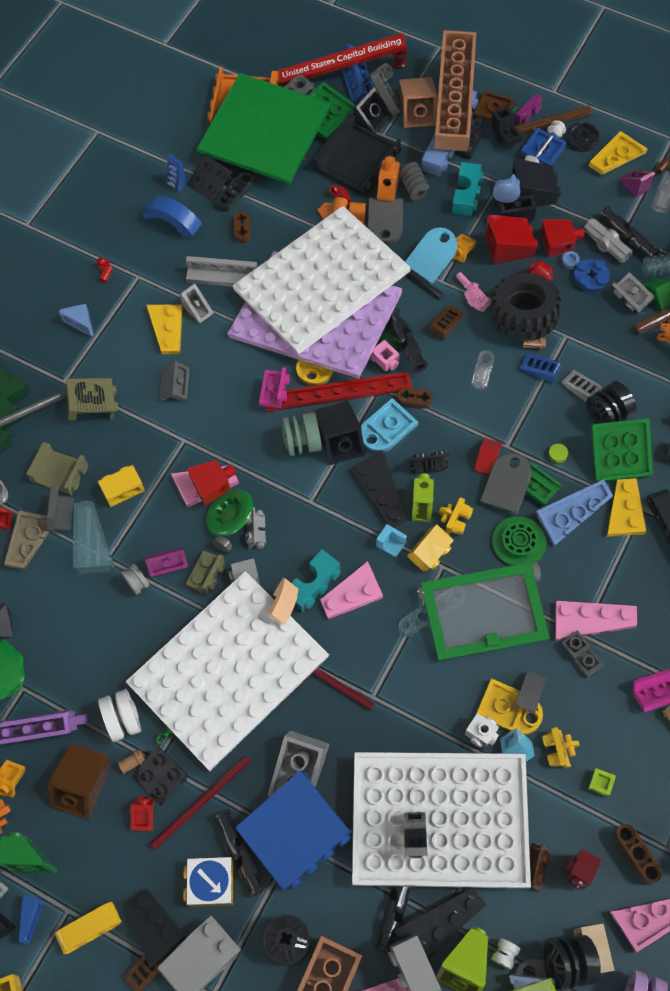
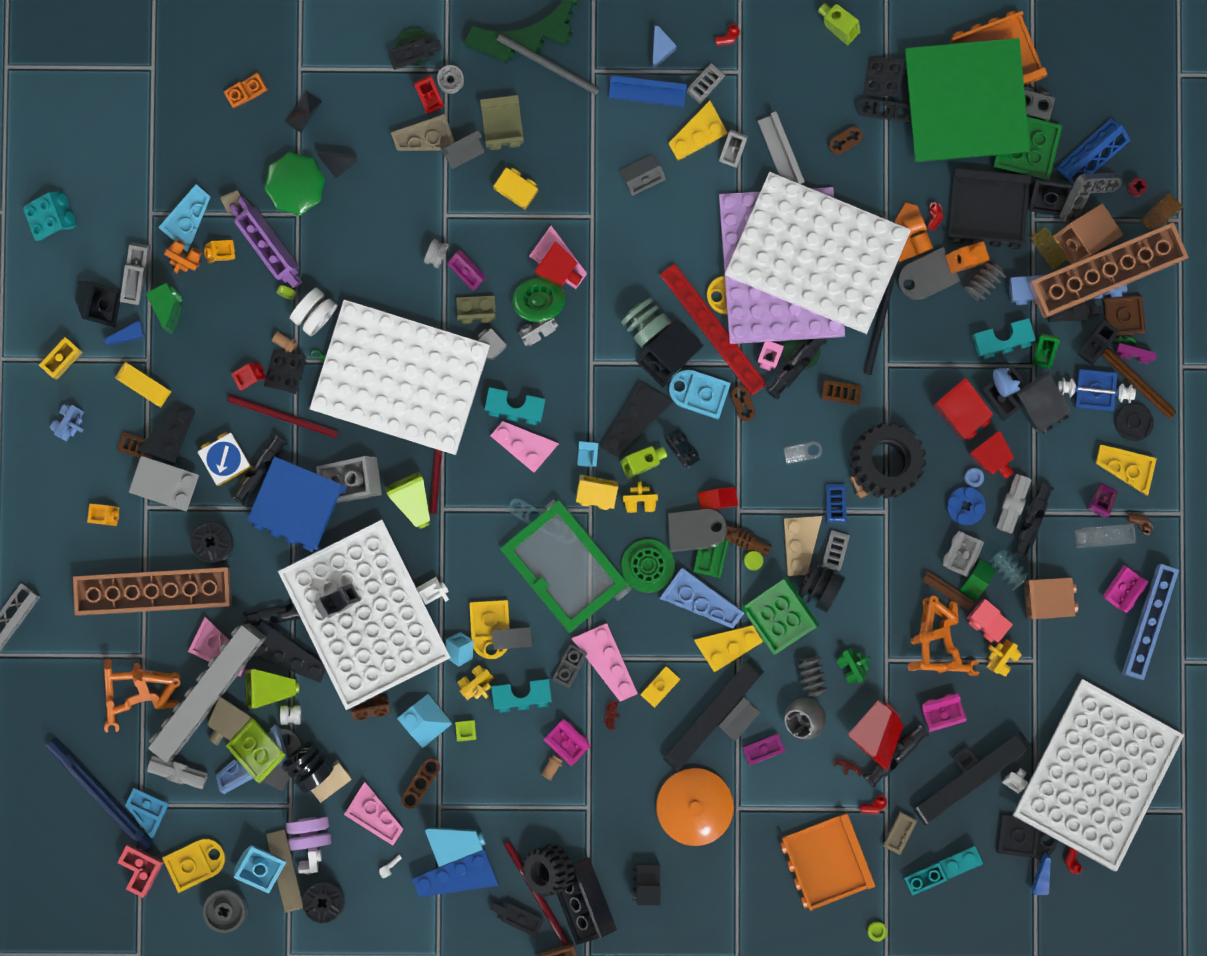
camera: 55 degrees right, 20 degrees up
(78, 781) = (247, 309): reddish brown slope -> none
(86, 734) = (286, 292): none -> lime tile
(90, 396) = (583, 110): olive panel -> none
(90, 545) = (451, 192): clear light blue slope -> none
(107, 346) = (647, 91): none -> blue fence
(133, 313) = (694, 94): none -> light grey slope
(147, 184) = (840, 22): none -> lime torso
(174, 213) = (818, 67): blue arch -> none
(175, 173) = (866, 42): blue slope -> none
(222, 544) = (508, 309): dark grey tile -> none
(273, 388) = (680, 271): dark pink bracket -> none
(285, 600) = (479, 394): light nougat slope -> none
(344, 59) = (1095, 132): red tile -> none
(348, 716) = (411, 499): none -> slope
(416, 132) = (1048, 248): none -> clear yellow slope
(428, 51) = (1161, 213): none -> clear orange slope
(432, 255) = (904, 343): medium azure tile -> none
(447, 739) = (432, 590): none -> white bracket
(465, 245) = (932, 366): light orange bracket -> none
(474, 294) = (881, 404): bright pink piece -> none
(475, 732) = (453, 607): white brick -> none
(492, 164) = (1045, 350): none -> green slope
(538, 448) = (746, 540): none -> reddish brown hinge
(541, 268) = (939, 456): red head -> none
(561, 410) = (800, 543): none -> tan wing
(573, 818) = (424, 720): none -> medium azure slope
(581, 869) = (383, 744): dark red brick -> none
(596, 694) = (504, 698): none -> teal arch
(638, 584) = (660, 687): none -> yellow plate
(651, 644) = (609, 719): none -> clear red piece

